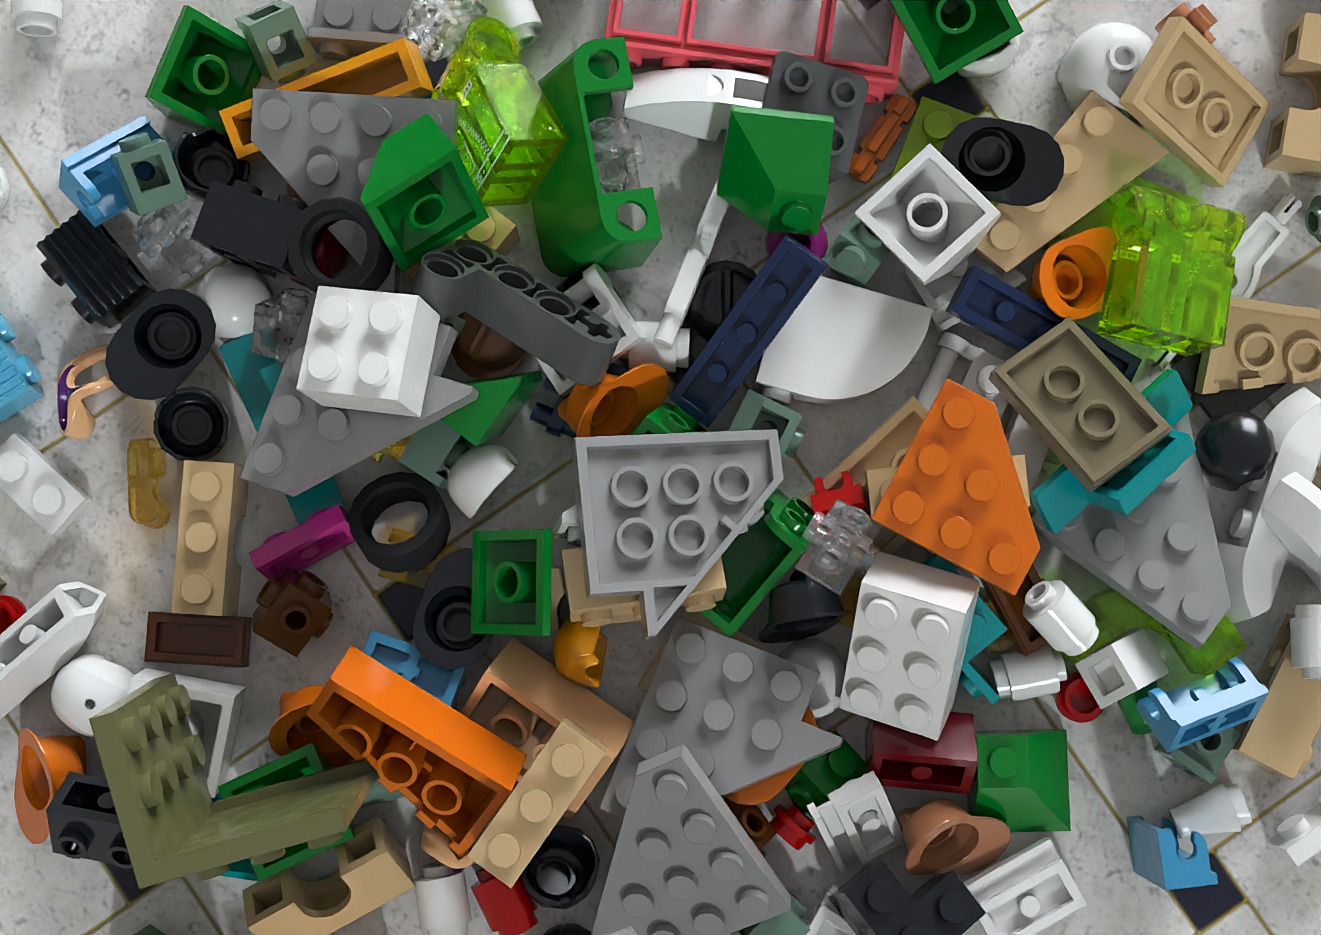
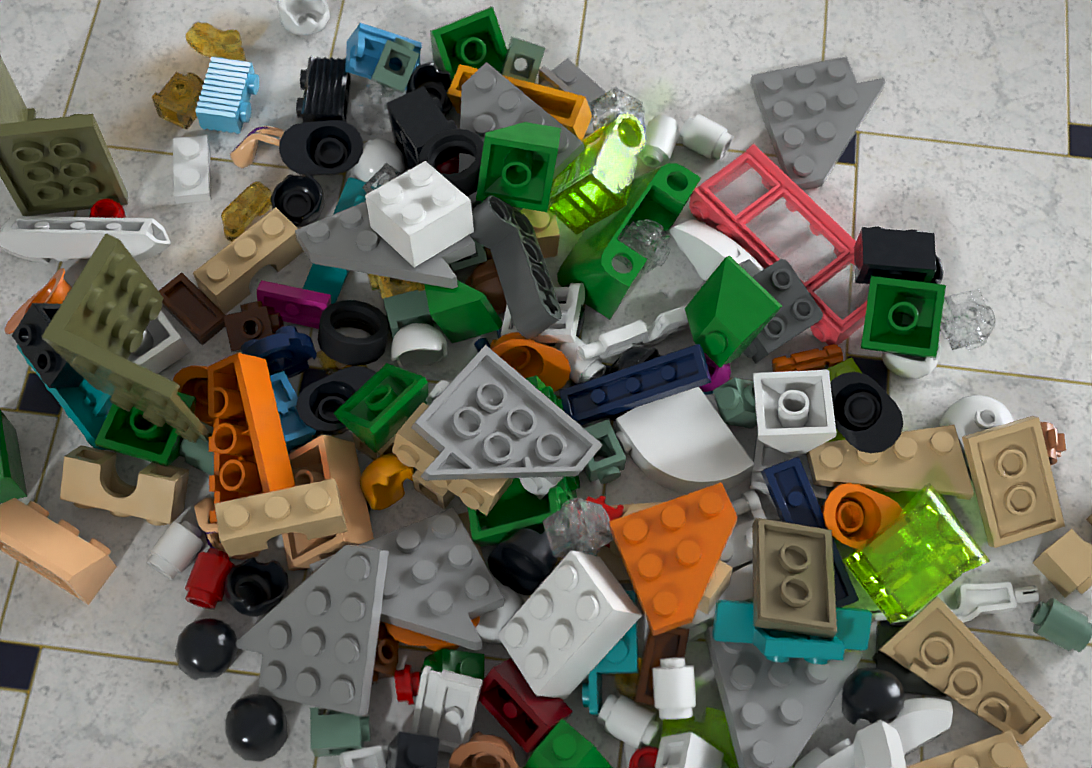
camera: 40 degrees right, 20 degrees down
(356, 610) = (283, 351): none -> dark blue plate

